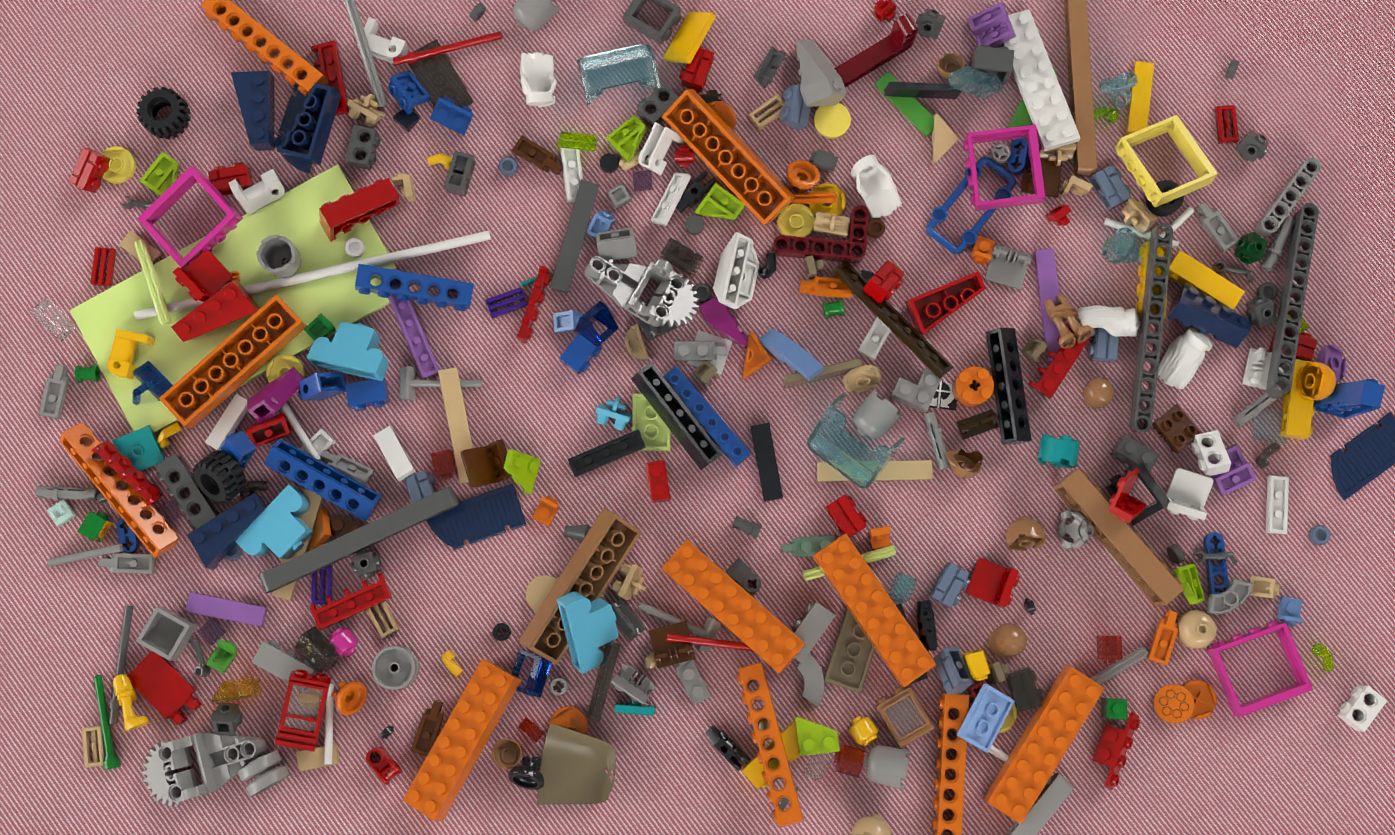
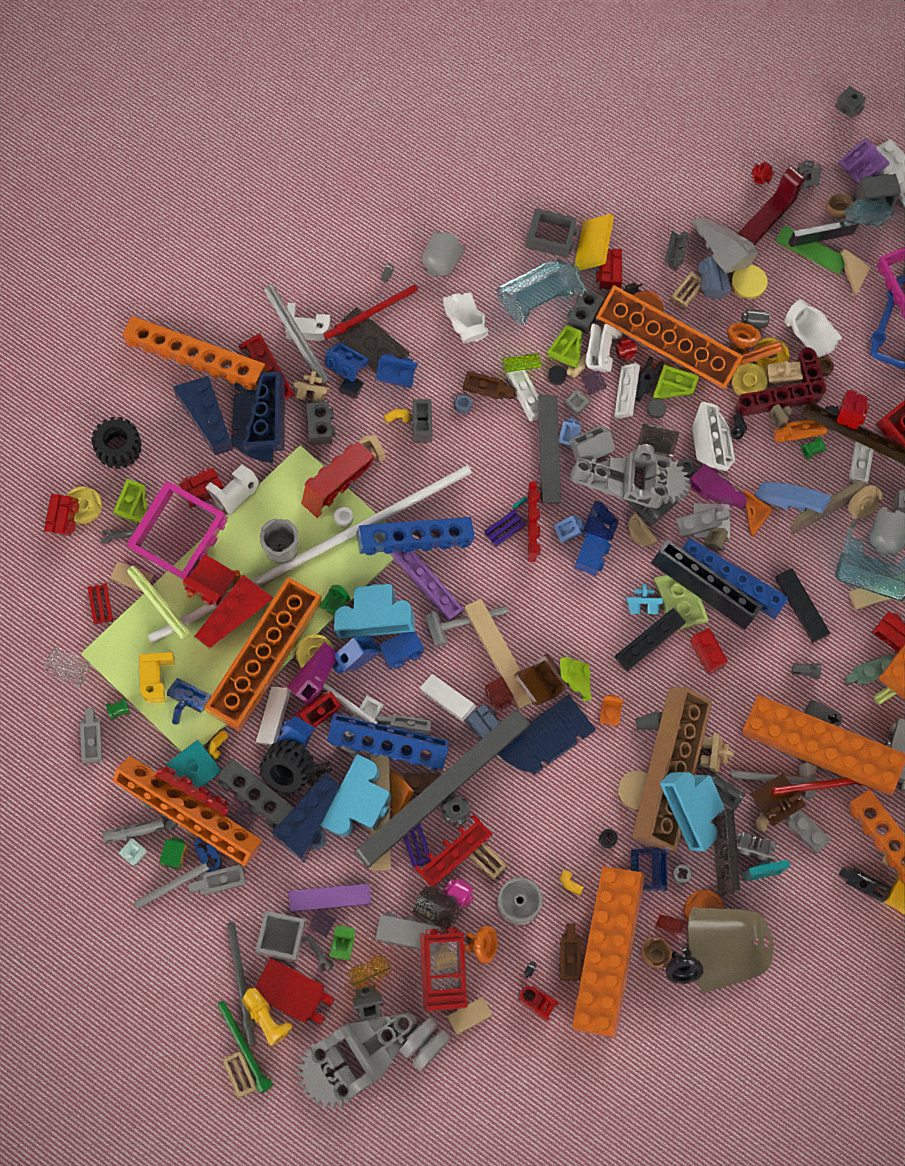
camera: 20 degrees left, 10 degrees down
(328, 750) = (475, 990): white bar -> none

